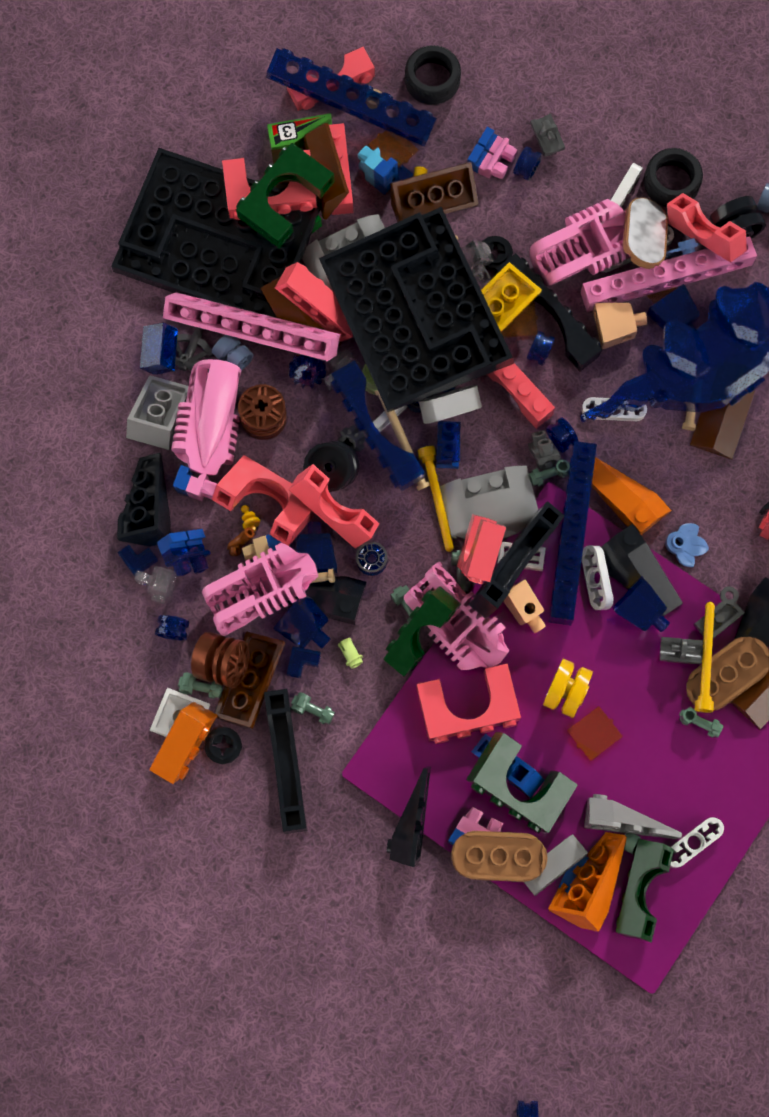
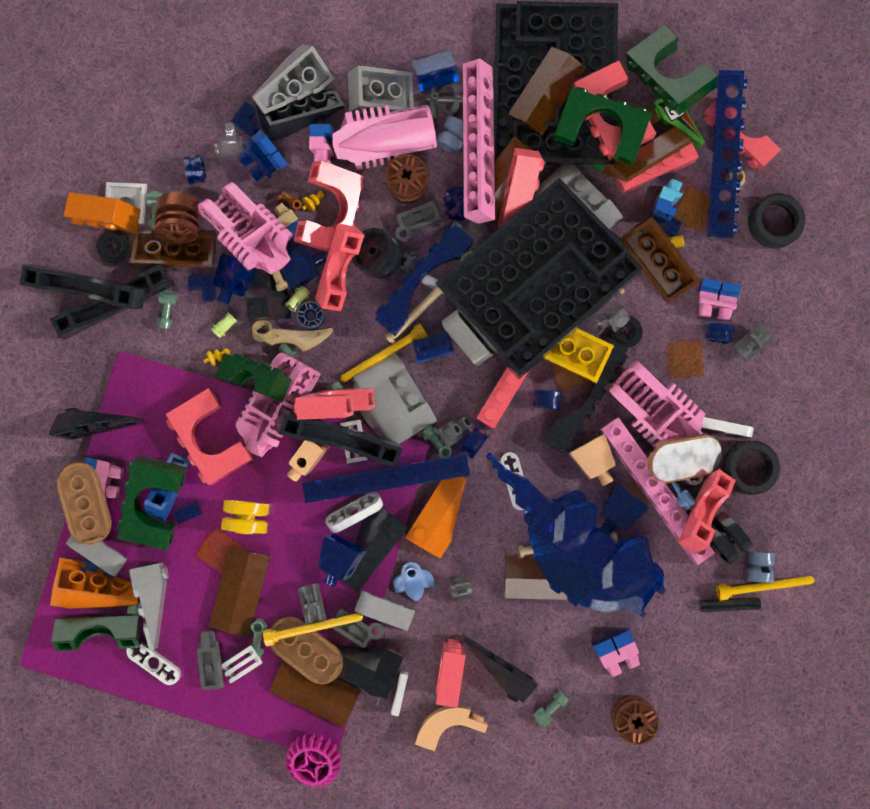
camera: 70 degrees right, 10 degrees up
(112, 488) = (294, 79): none -> light grey wedge
(220, 246) = (545, 89): none -> reddish brown slope
(258, 785) = (83, 285): none -> black arch
(273, 121) = (676, 93): none -> dark green arch
(306, 419) = (416, 219): none -> dark grey hinge
(349, 567) = (297, 299): none -> yellowish green pin
(382, 675) = (211, 358): none -> yellow hair
(396, 572) = (302, 339): none -> tan piece
(542, 206) = (685, 359): none -> clear orange piece
(542, 755) = (187, 513): none -> clear blue piece
(643, 726) = (239, 591): none -> reddish brown slope
(710, 496) = (461, 589): none -> dark grey gear
(710, 580) = (384, 610): none -> light grey beam
(712, 780) = (209, 662): none -> dark grey hinge
(732, 743) = (230, 671): none -> white tile

